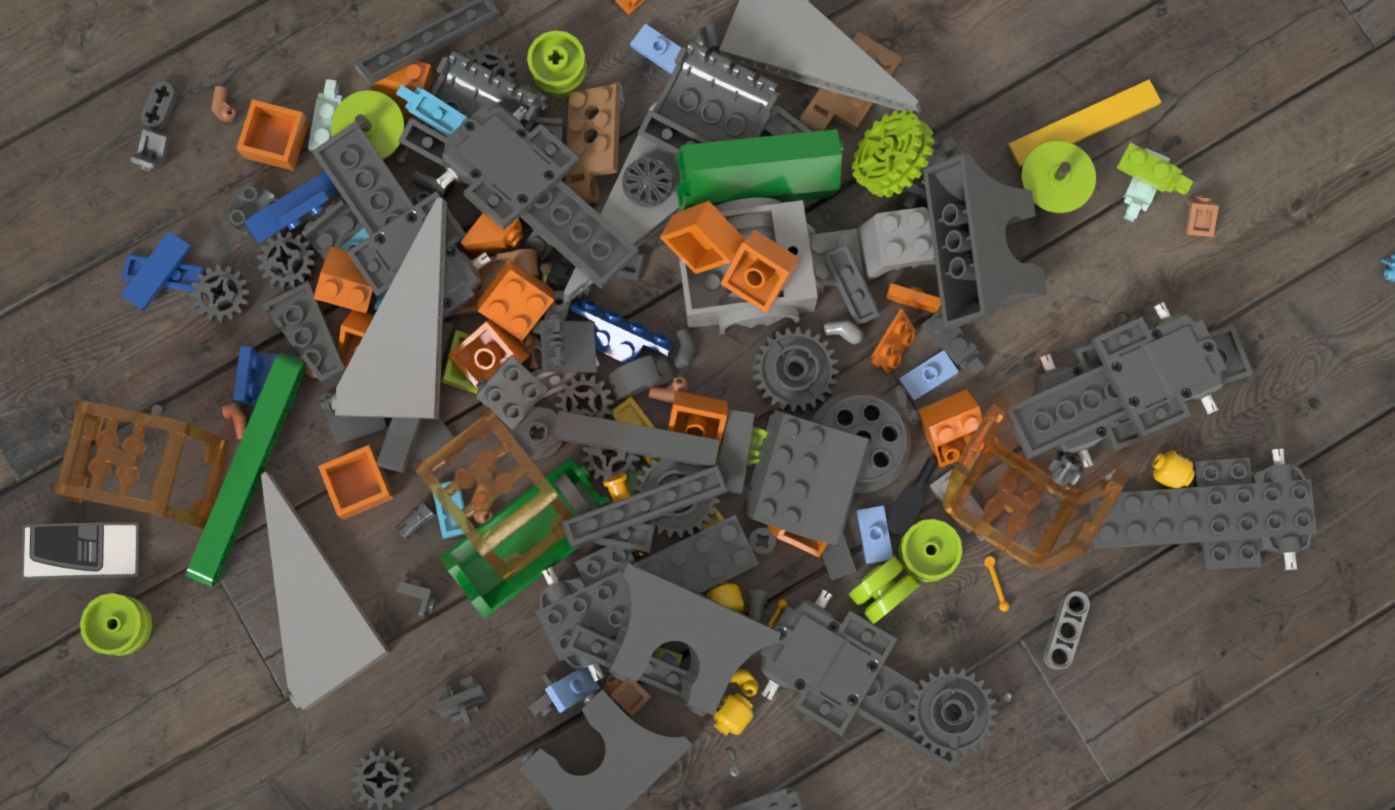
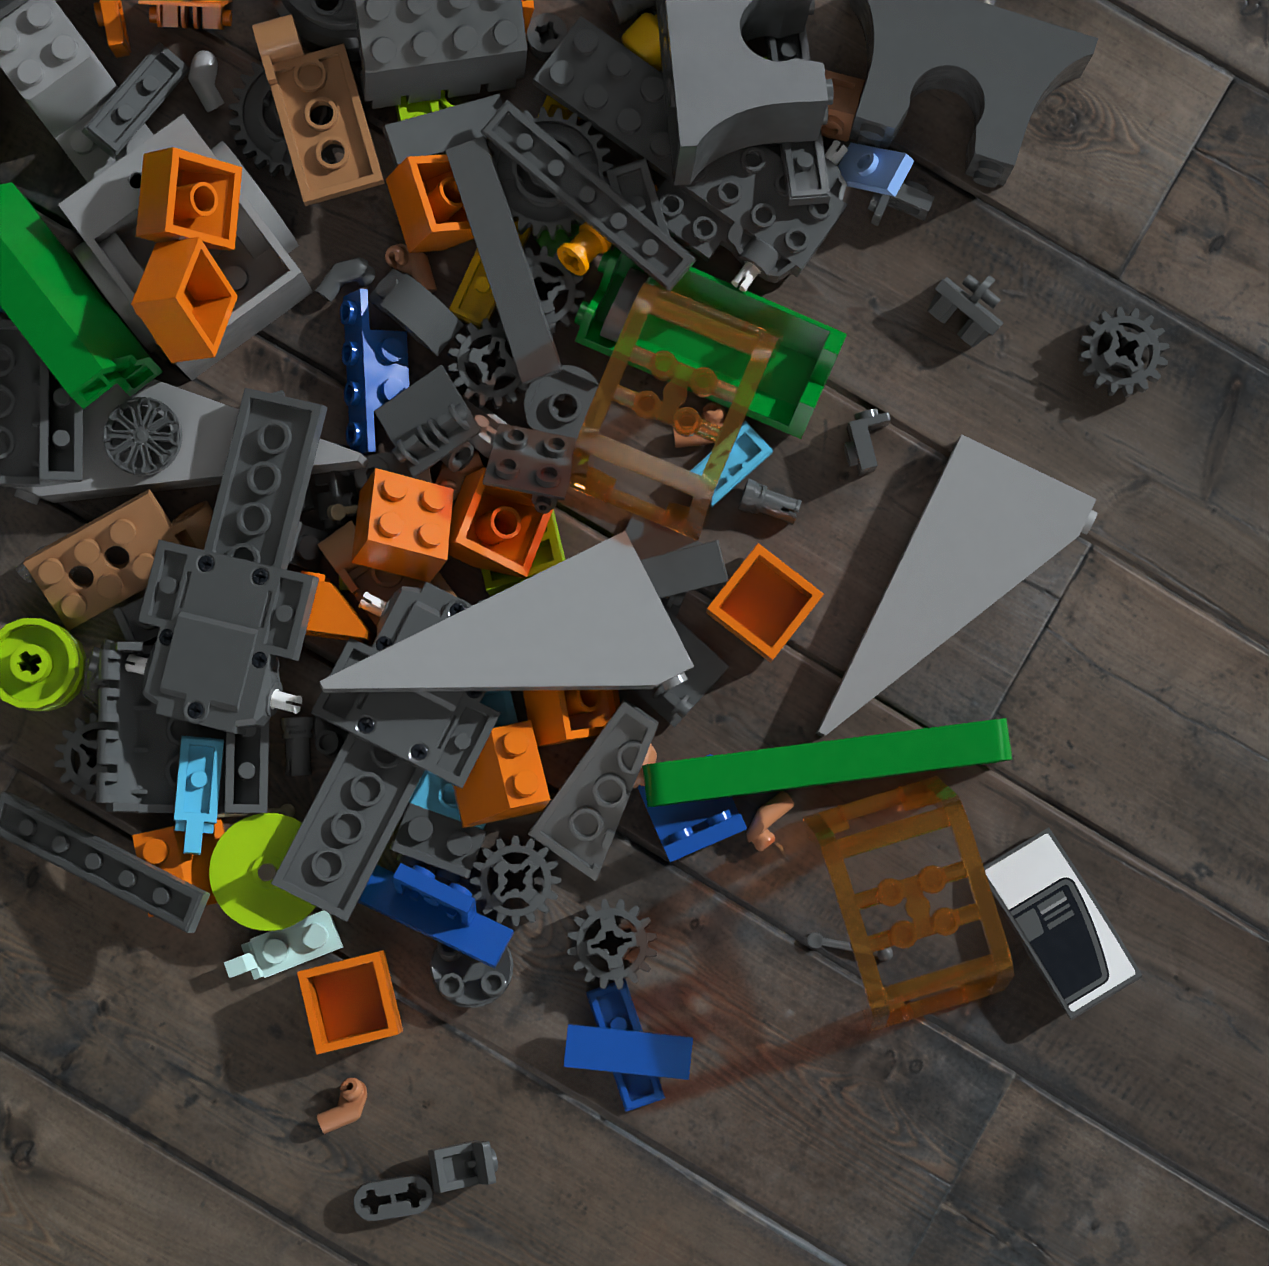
camera: 120 degrees left, 5 degrees up
(113, 610) = (1153, 812): lime wheel -> none
(804, 378) = (298, 87): none -> medium nougat hinge

